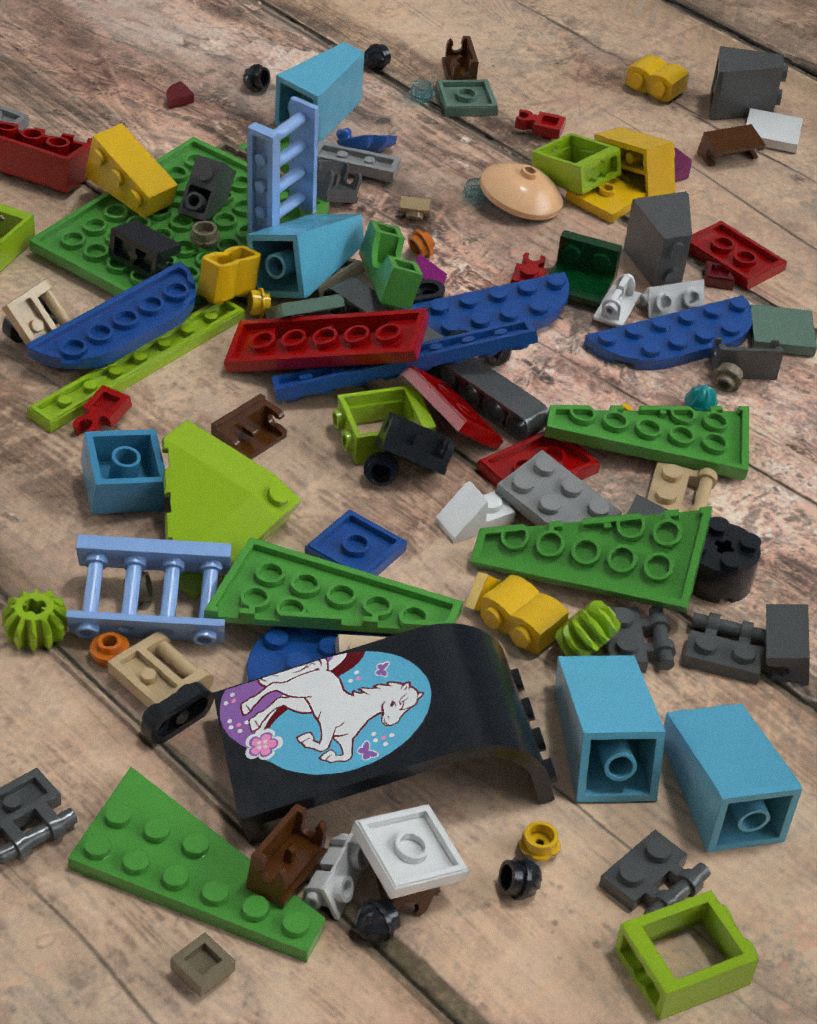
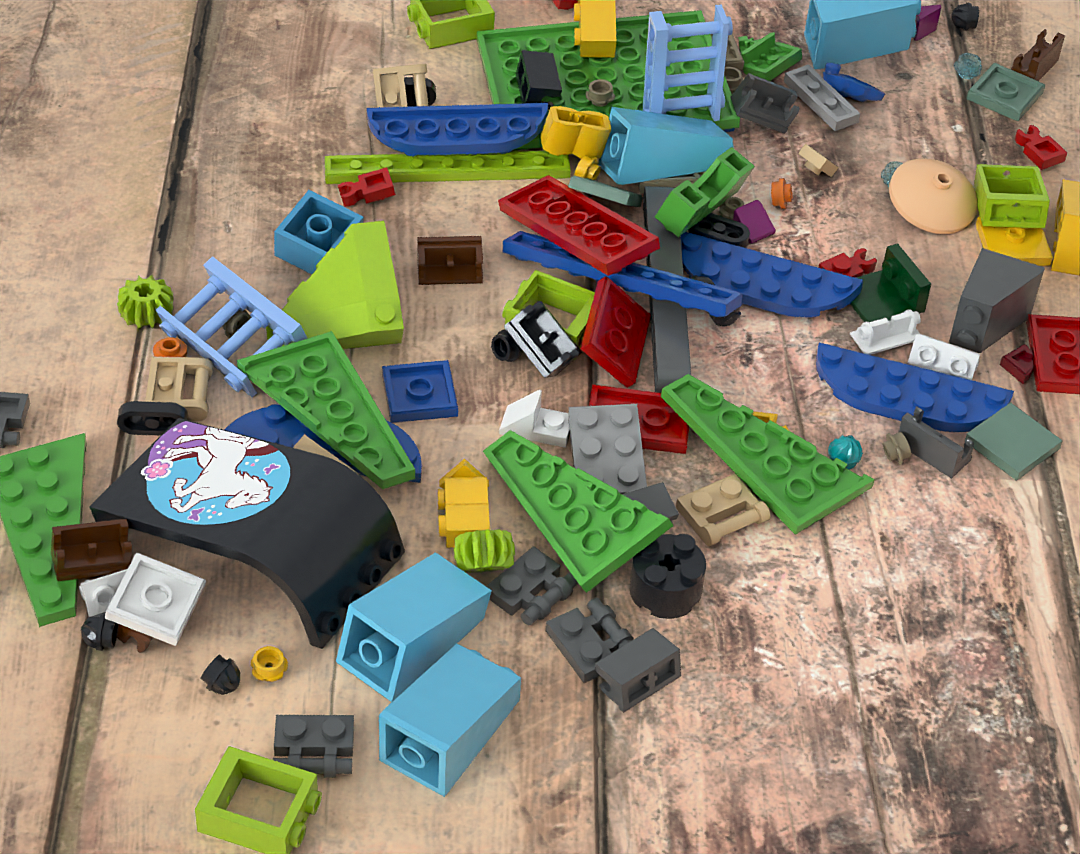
camera: 45 degrees right, 5 degrees up
(206, 188) = (630, 62): dark grey slope -> none

